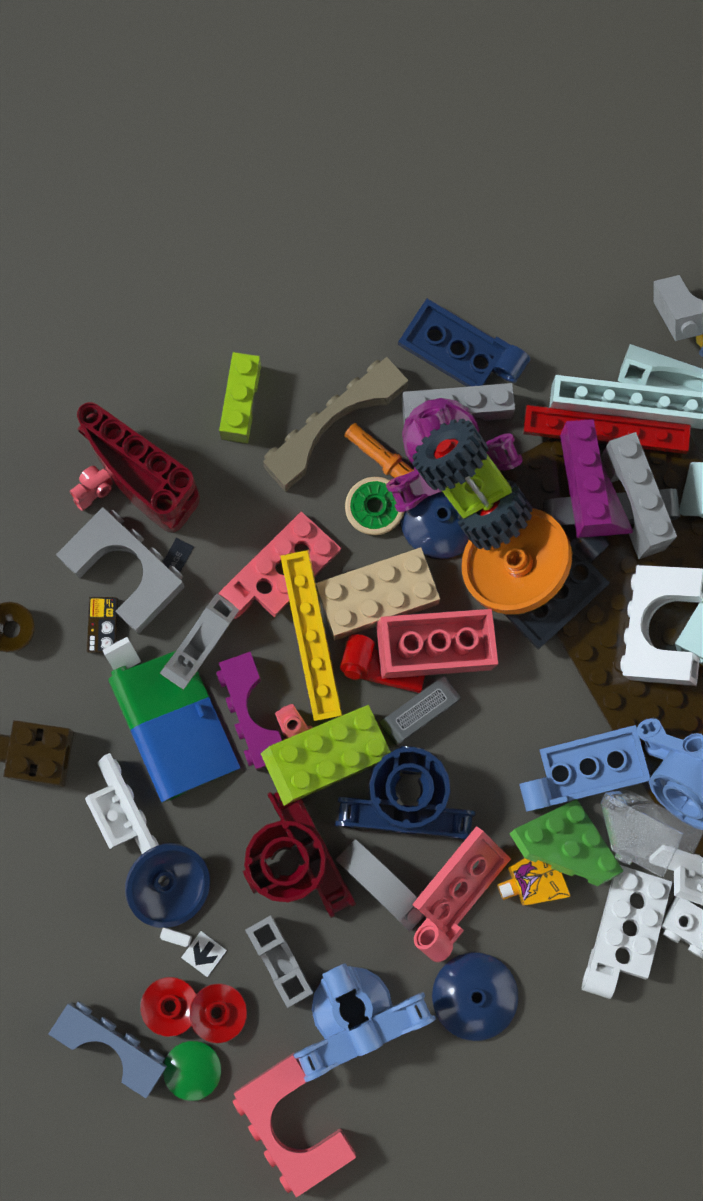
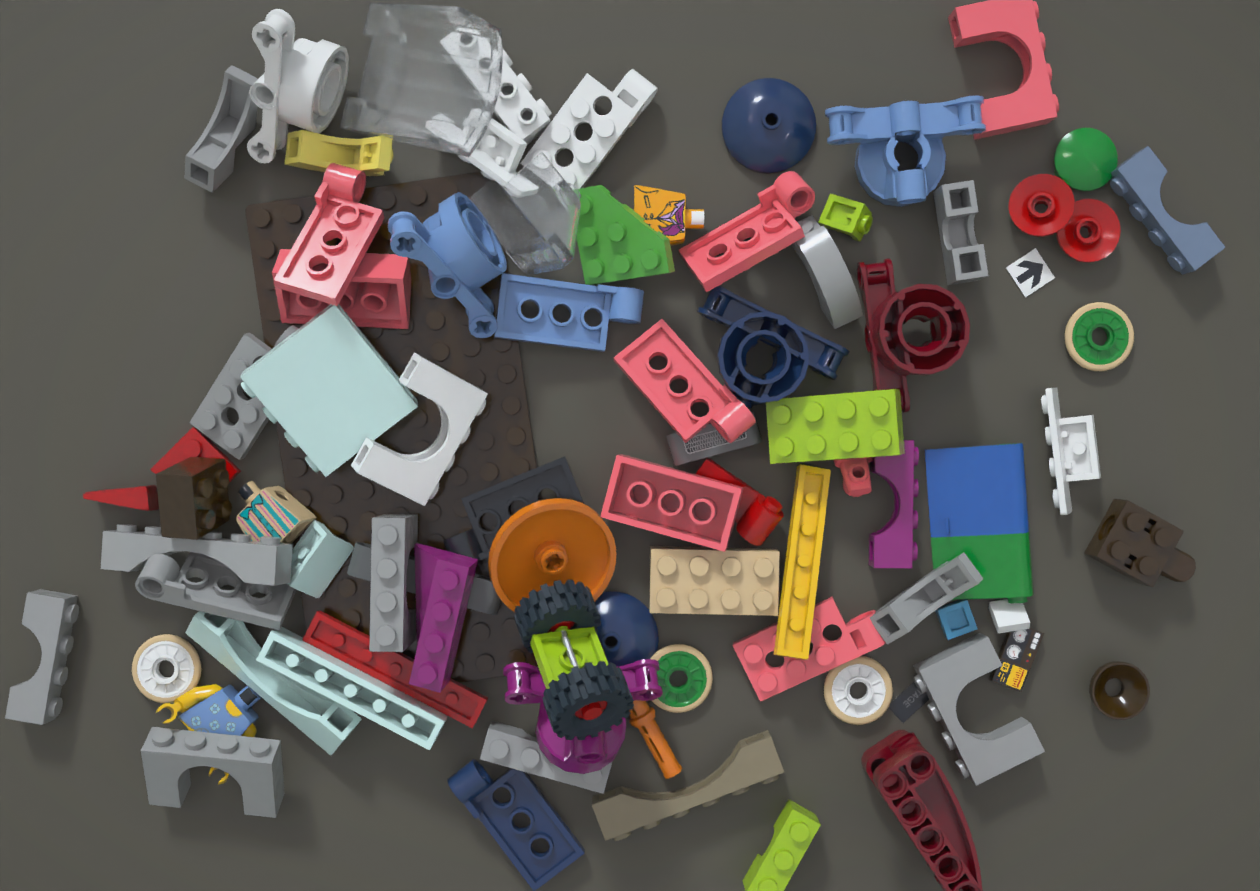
camera: 160 degrees left, 10 degrees up
(94, 485) = (980, 810): coral plate -> none
(112, 932) = (1079, 336): none -> green wheel
(163, 637) = (956, 619): none -> dark azure tile
(176, 937) = (1056, 298): white tile -> none
(178, 896) = (1053, 339): dark blue dish -> none
(208, 541) = (864, 709): none -> wheel
(379, 940) = (846, 217): none -> lime bracket
(448, 748) = (725, 412): none -> coral hinge

